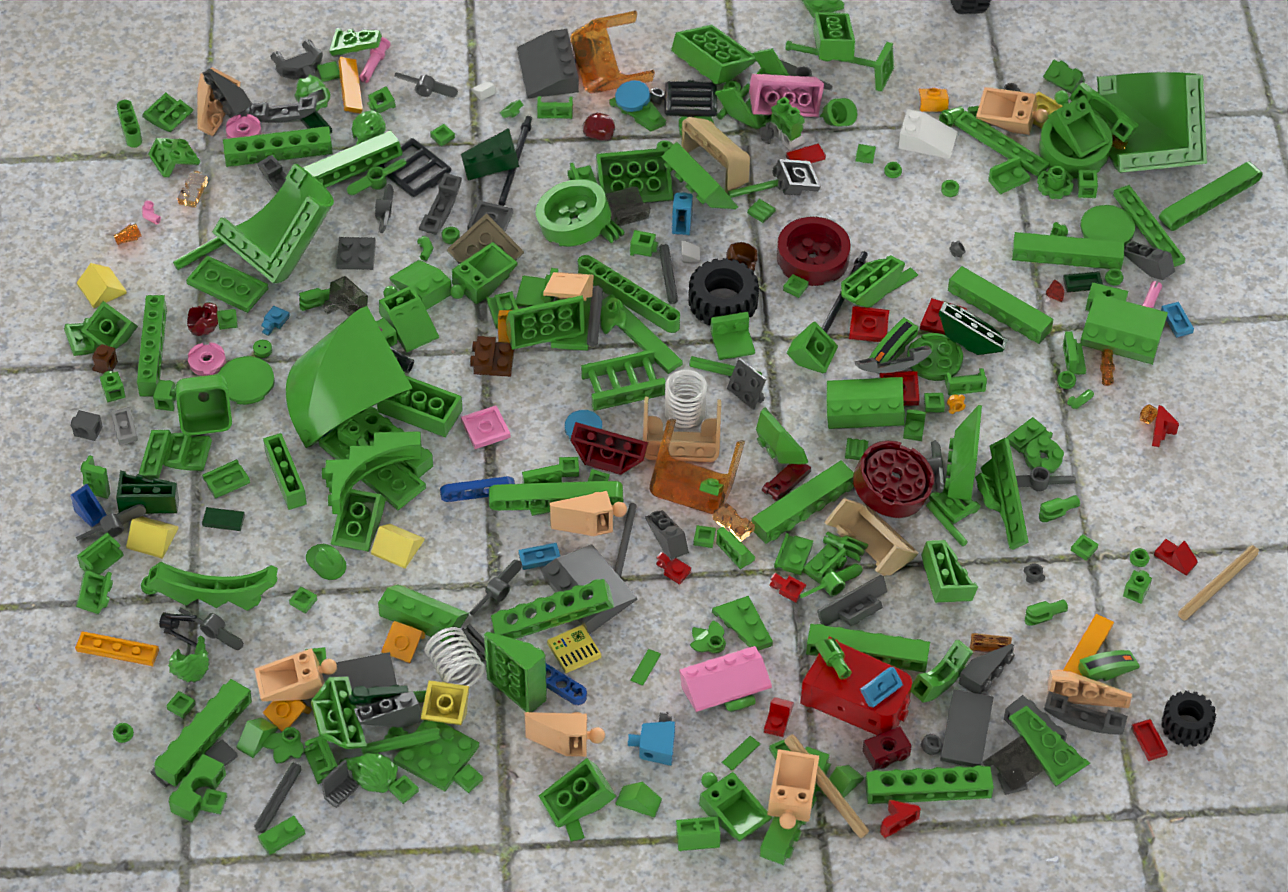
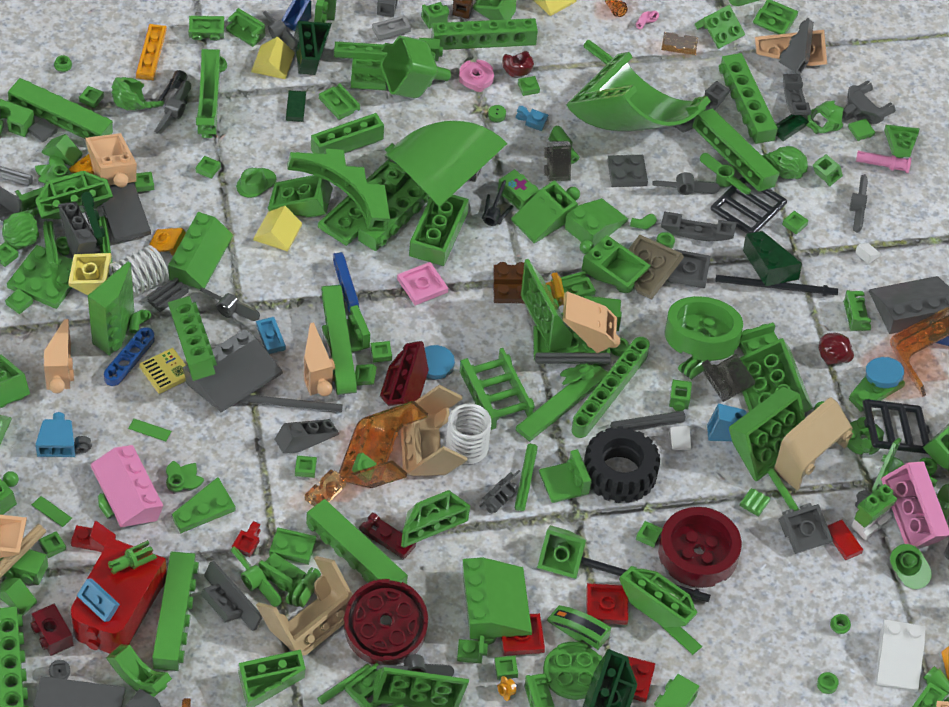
camera: 80 degrees right, 0 degrees up
(227, 284) = (568, 78): bright green plate -> none
(237, 122) = (763, 79): bright pink plate -> none
(248, 379) = (457, 103): bright green tile -> none
(350, 85) = (845, 145): tile -> none
(512, 109) = (843, 275): bright green plate -> none
(657, 95) = (901, 396): dark grey plate -> none
(674, 570) = (265, 446): red plate -> none
(734, 548) = (289, 489): bright green bracket -> none
(744, 253) = (674, 479): reddish brown hair -> none
(855, 448) = (436, 598): bright green piece -> none
(865, 153) = (860, 597): bright green plate -> none
(916, 356) = (542, 603): dark grey slope -> none
(957, 249) = (736, 691): dark grey plate -> none

